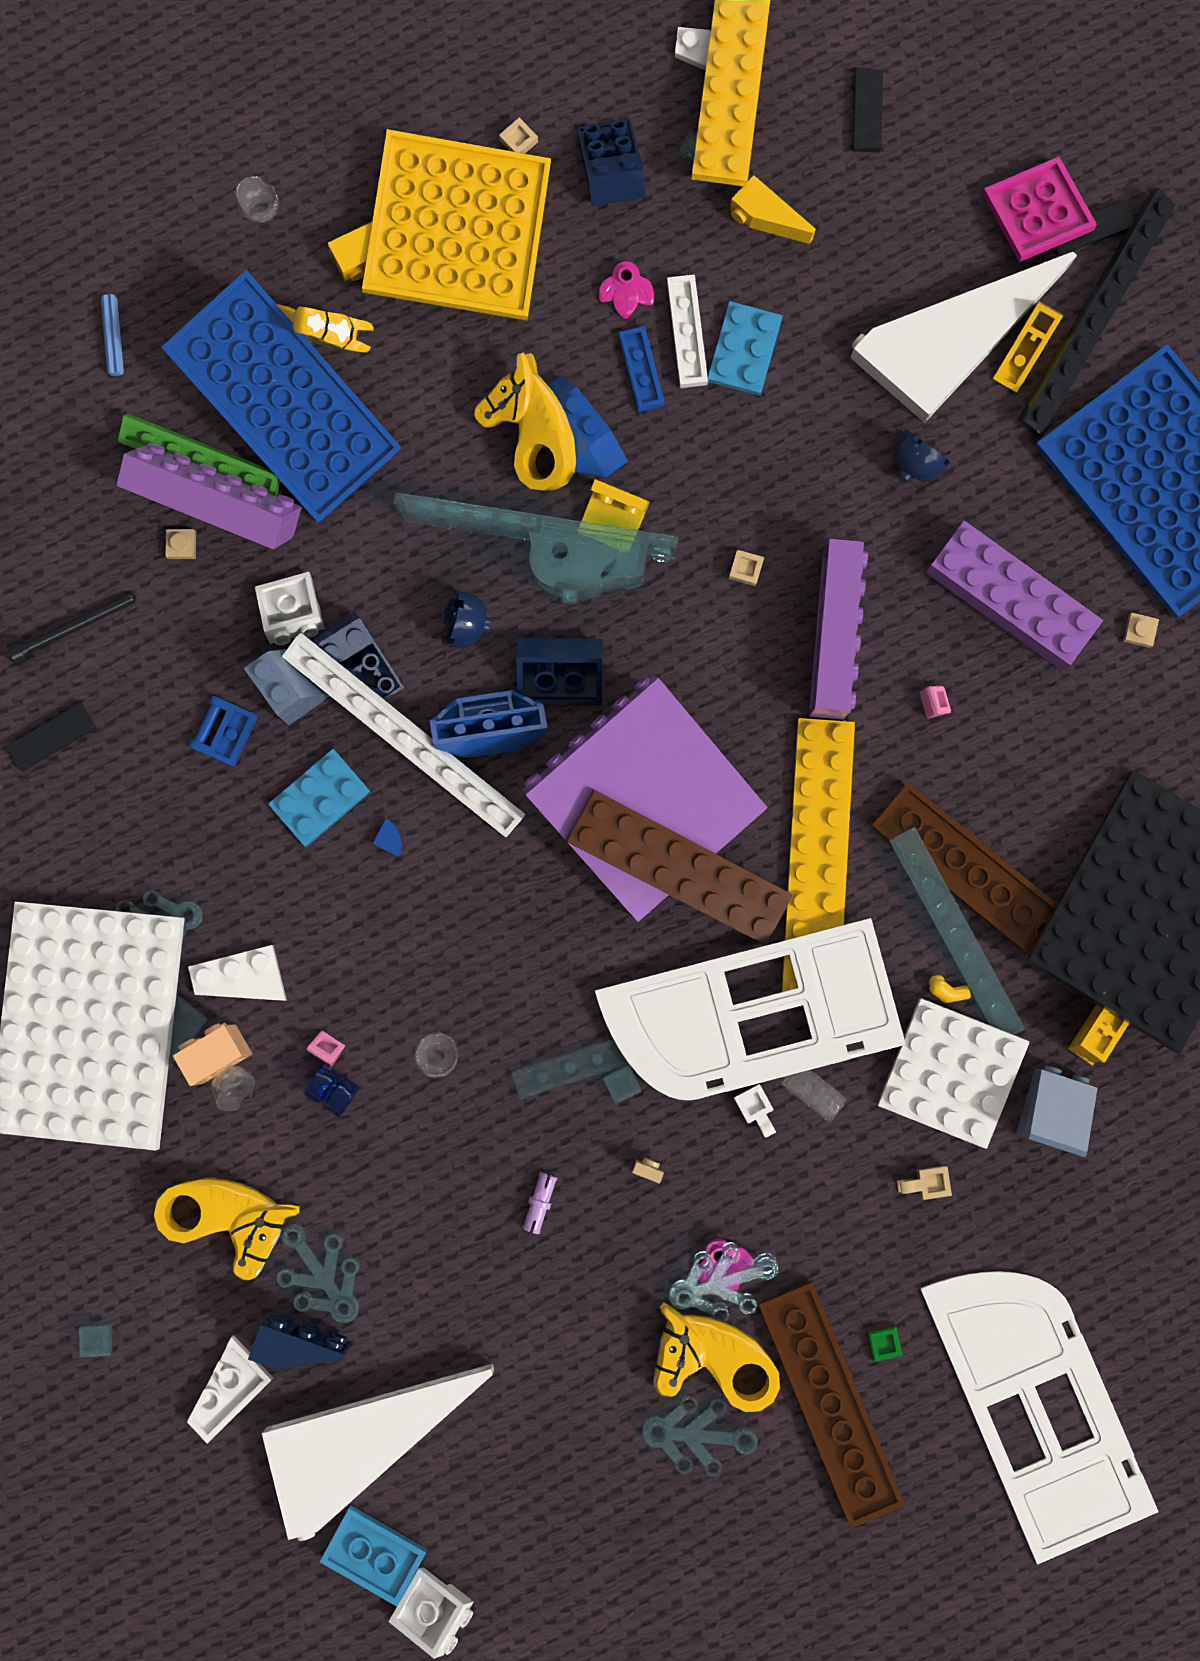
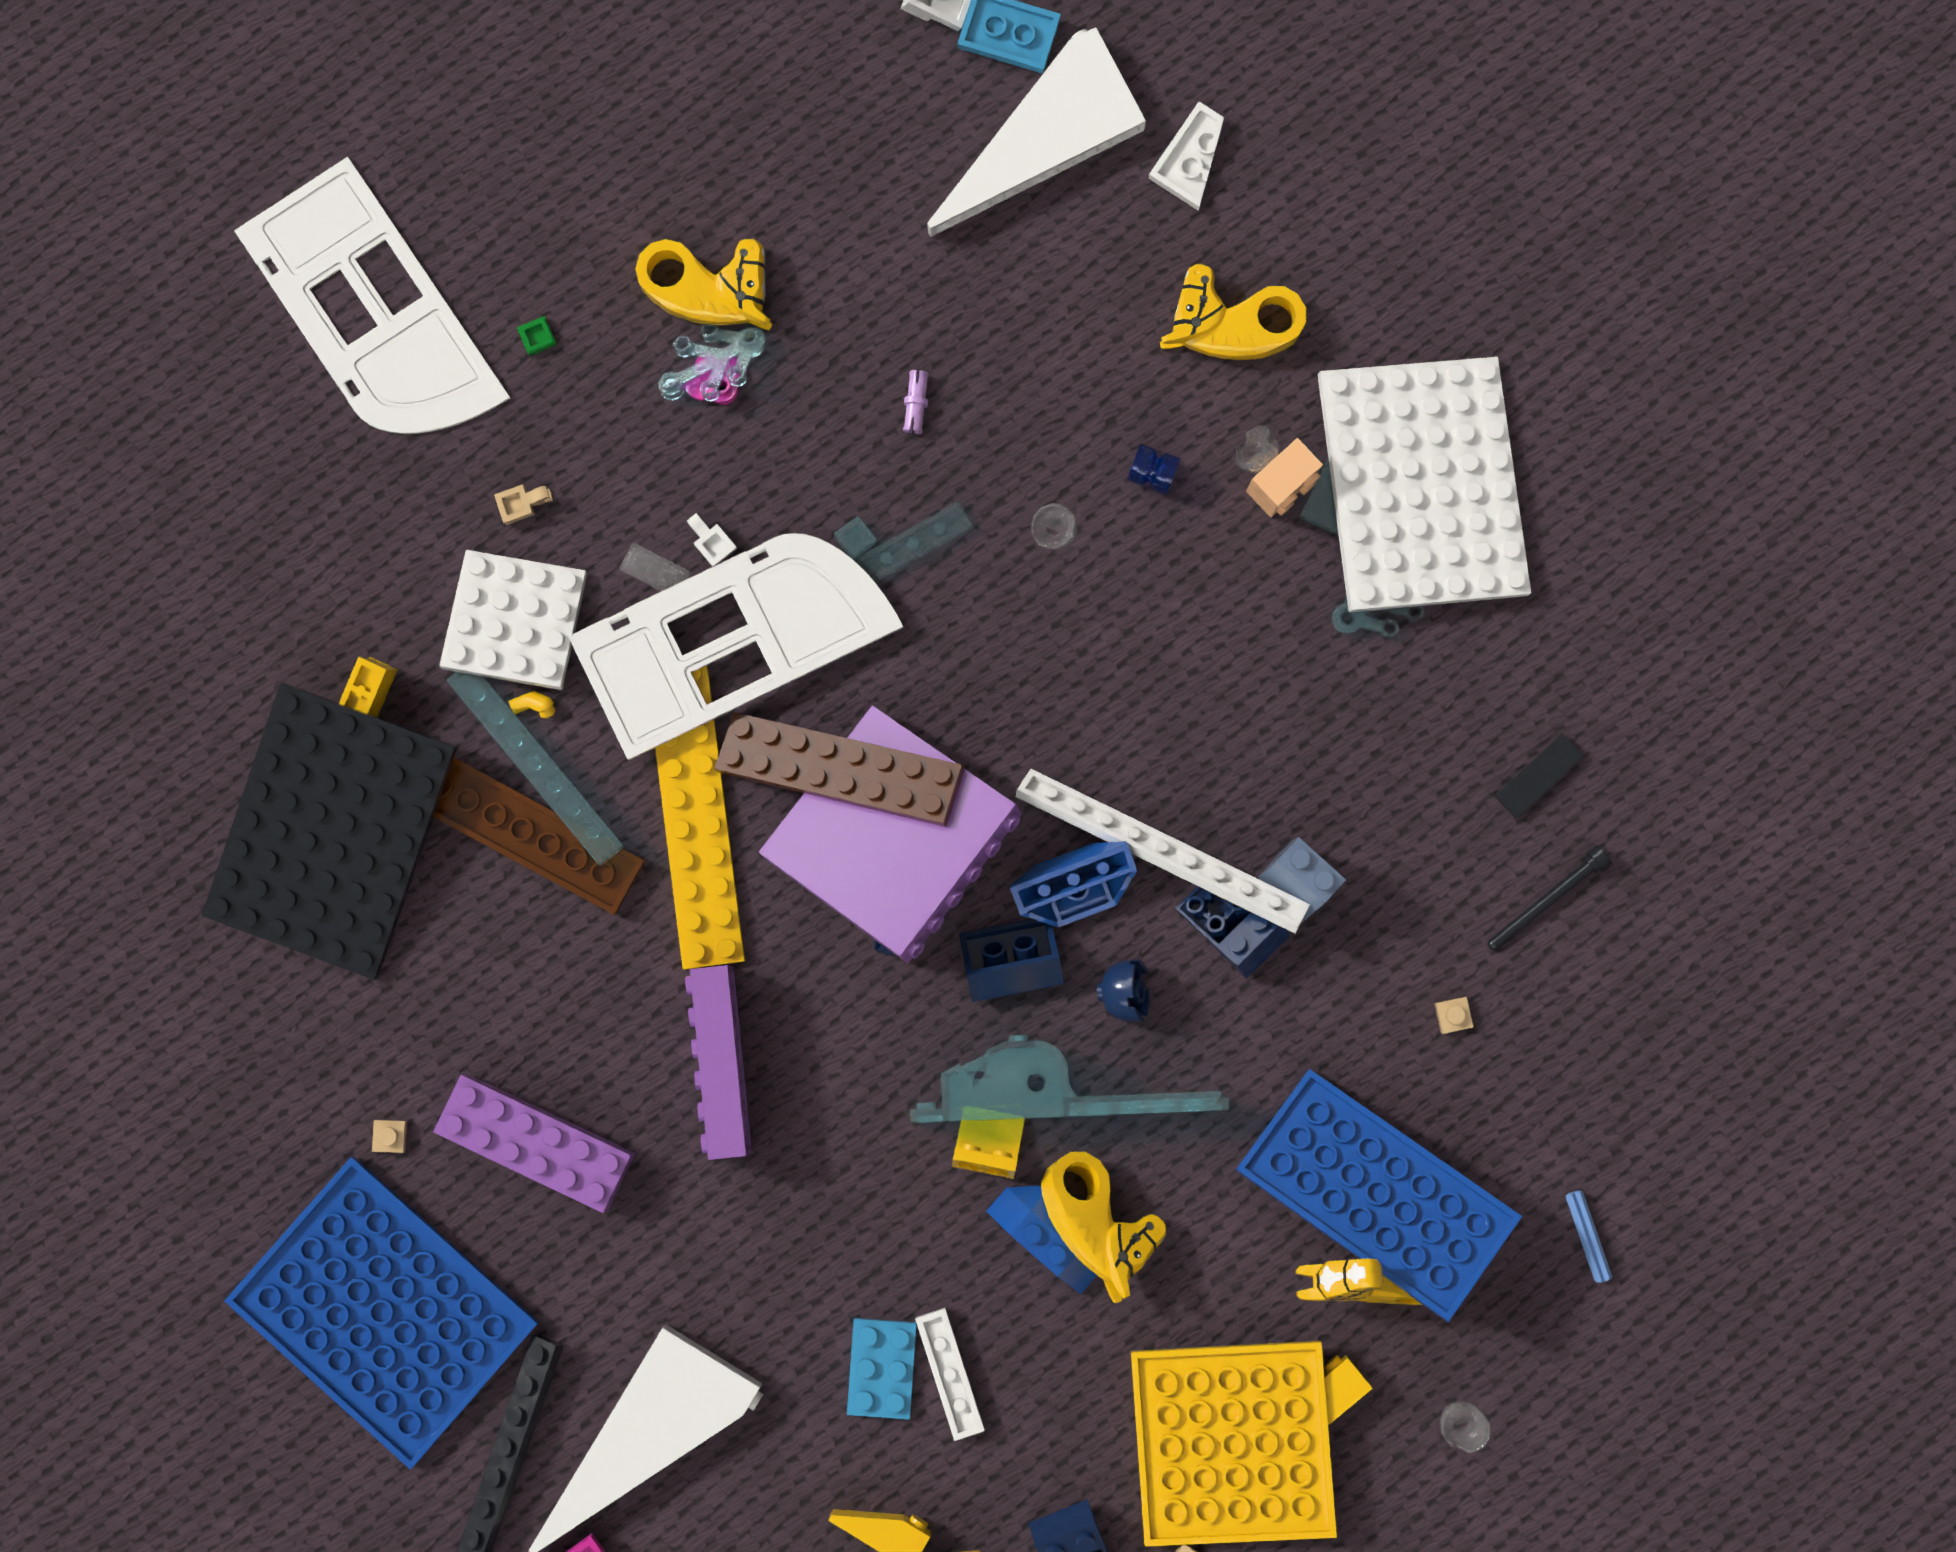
camera: 170 degrees right, 0 degrees up
(95, 1340) = (1335, 176): clear light blue plate -> none
(139, 432) = (1457, 1114): bright green plate -> none
(209, 495) = (1433, 1069): medium lavender brick -> none
(231, 734) = (1348, 816): blue plate -> none
(242, 975) = (1277, 567): white wing -> none
(289, 608) = (1317, 966): white plate -> none
(289, 1345) = (1131, 210): dark blue slope -> none
(319, 798) = (1238, 770): dark azure plate -> none
(322, 1276) = (1122, 283): clear light blue plant -> none
(325, 1048) = (1170, 512): bright pink slope -> none
(389, 838) = (1154, 742): blue tile -> none
(626, 293) = (1025, 1405): dark pink plate -> none
(641, 369) = (992, 1320): blue tile -> none
(648, 1169) = (810, 456): tan plate -> none
(695, 1436) = (712, 208): clear light blue plant -> none
(746, 568) = (831, 1115): tan plate -> none
(831, 1404) = (581, 267): reddish brown plate -> none
(918, 458) = (665, 1277): dark blue cylinder -> none
(935, 701) = (599, 1010): bright pink slope -> none
(1028, 346) = (565, 1436): yellow slope -> none
(1058, 1111) = (397, 600): slope -> none

